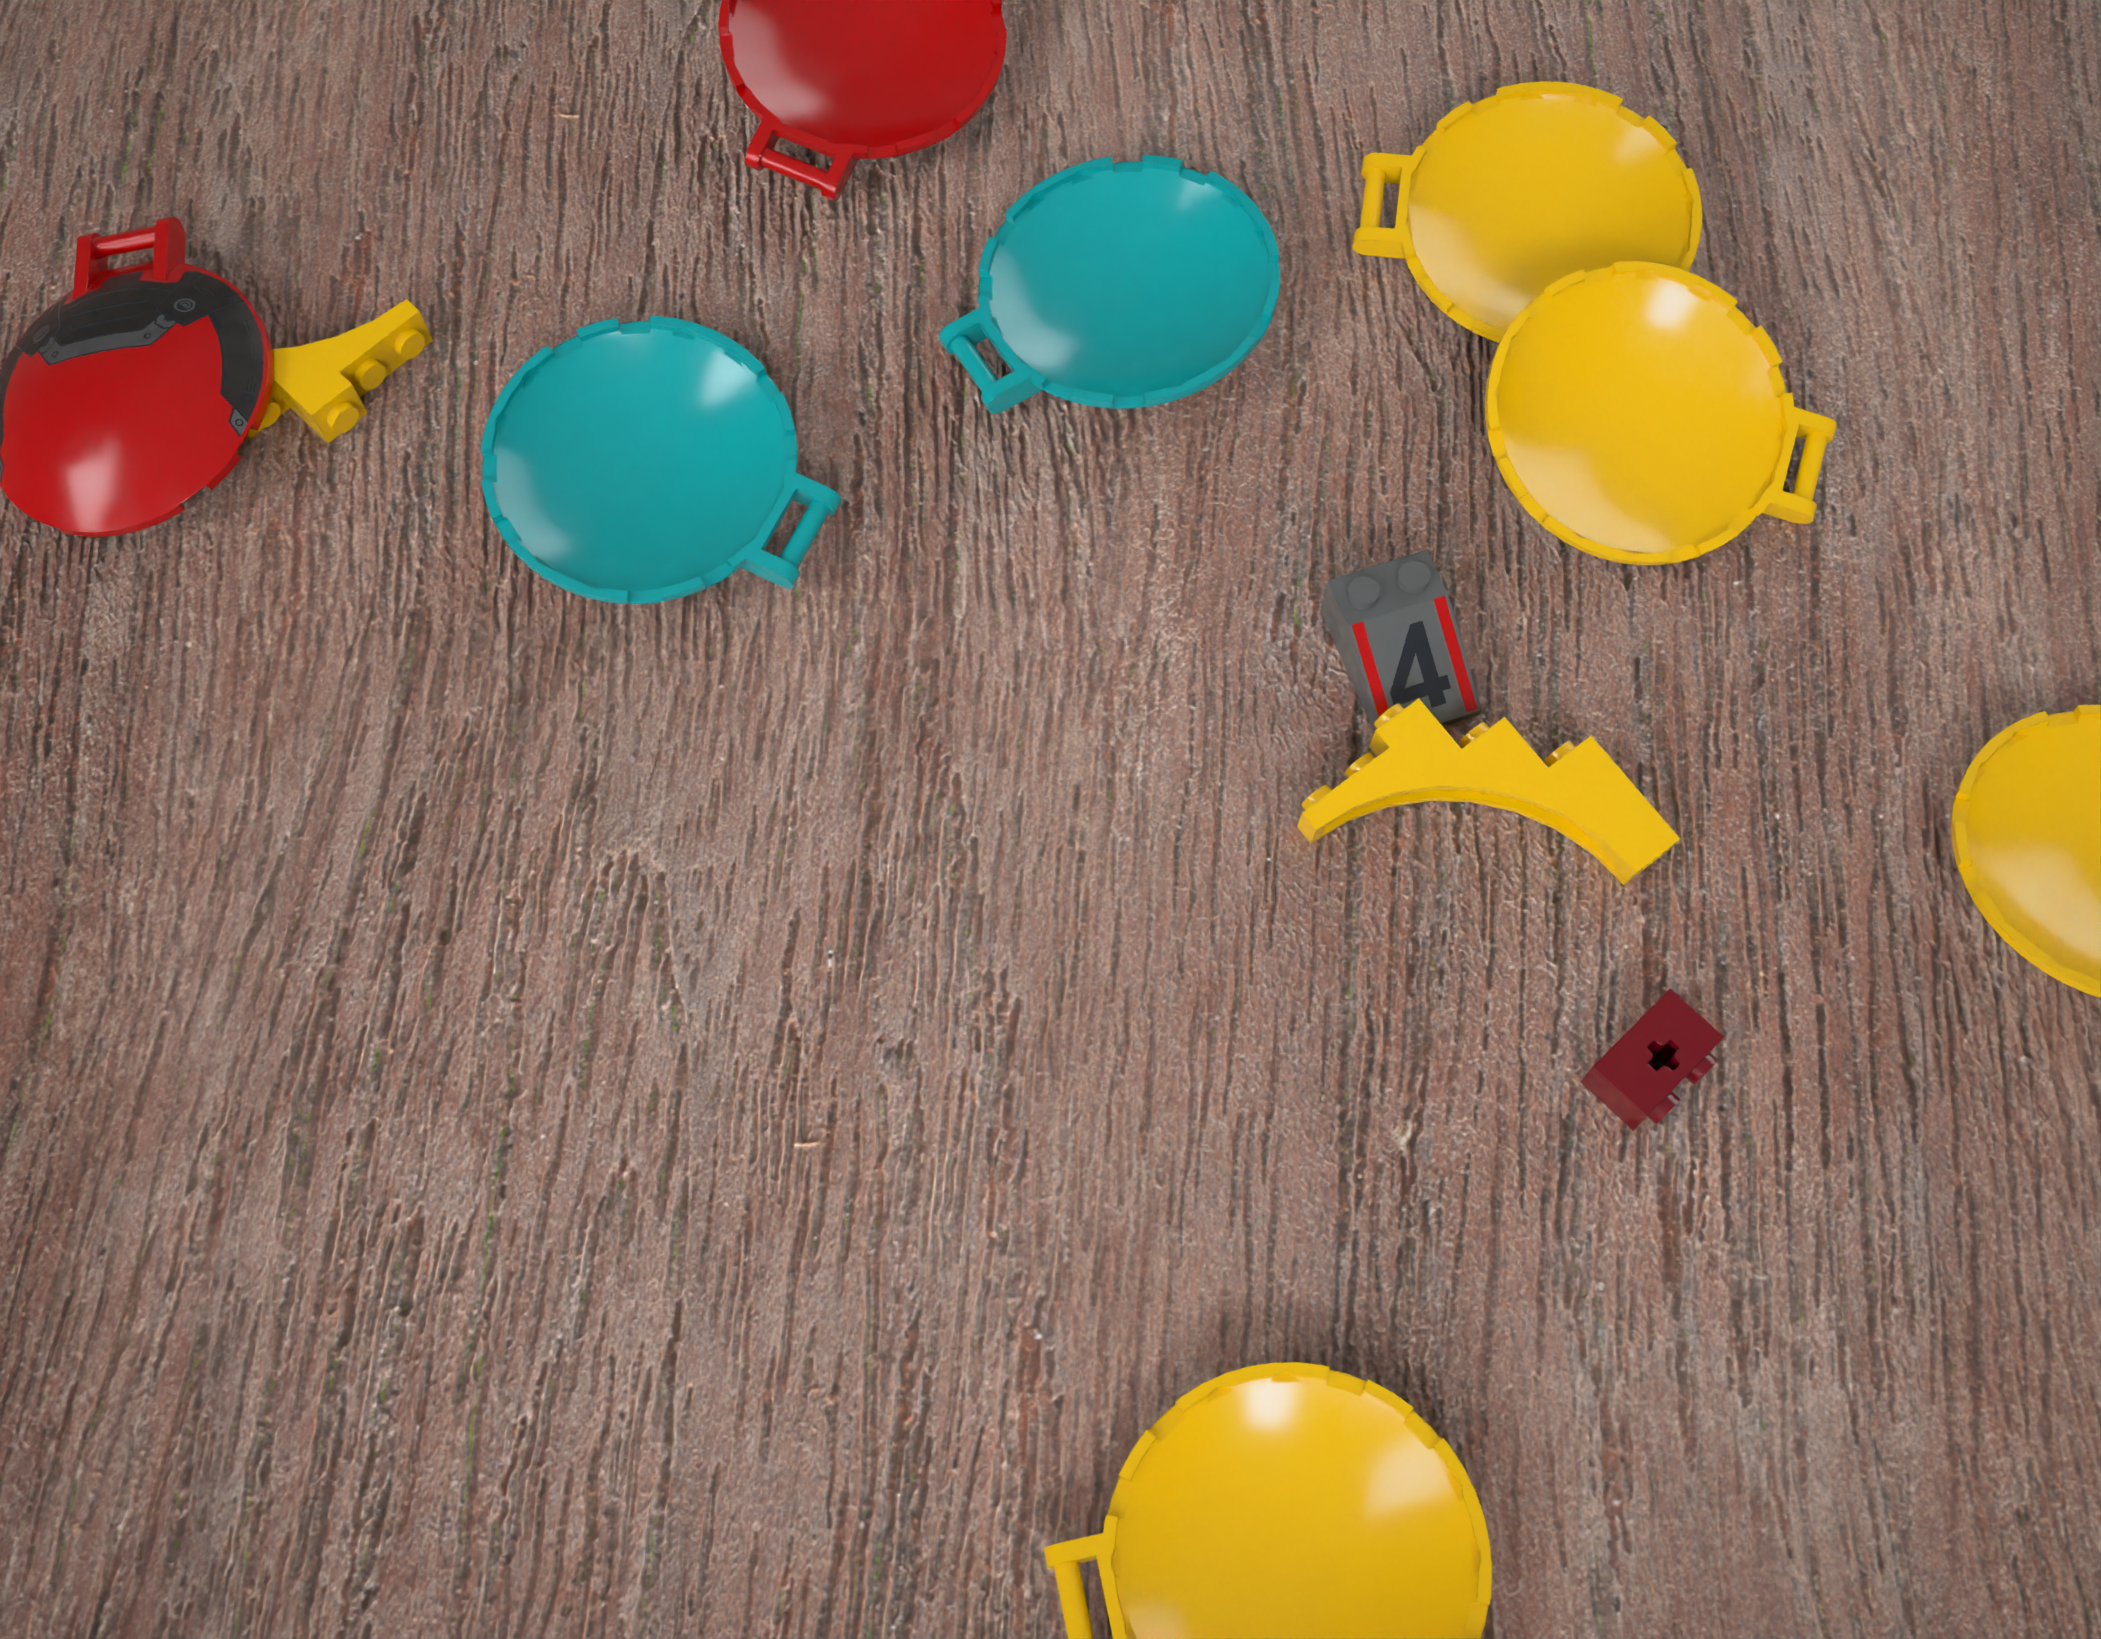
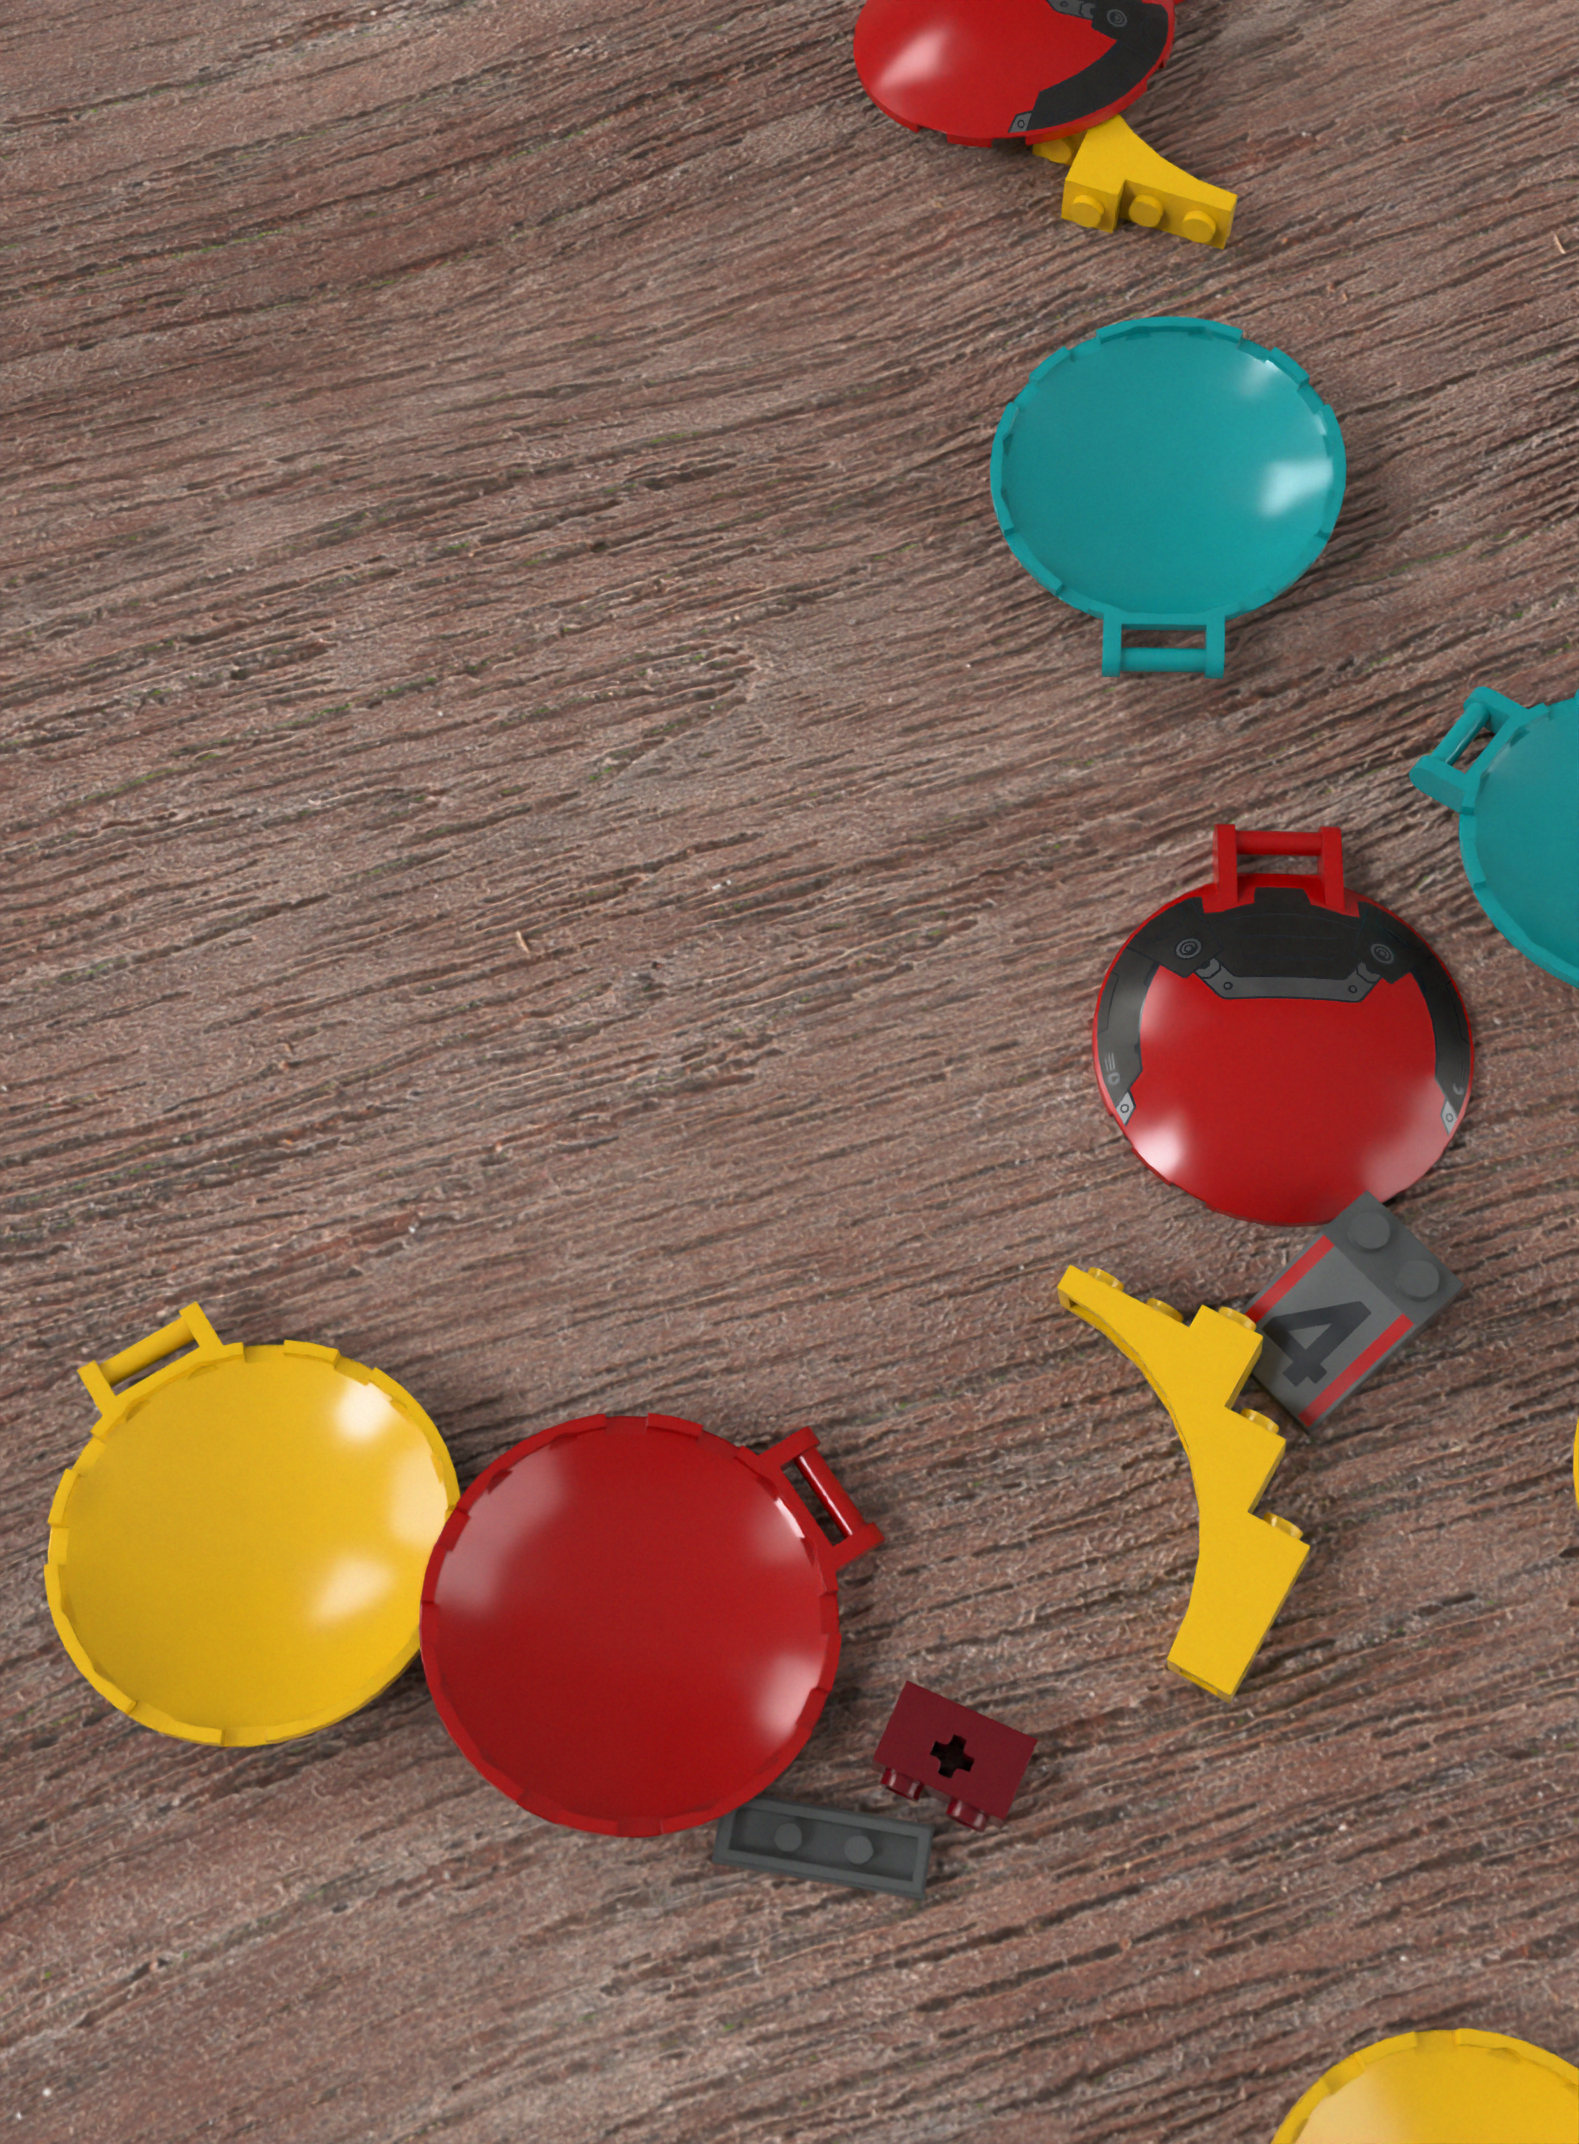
camera: 70 degrees right, 0 degrees up
(1156, 598) = (1282, 1040): none -> red dish
(1474, 1259) = (637, 1620): none -> red dish
(1684, 1189) = (826, 1846): none -> dark grey tile

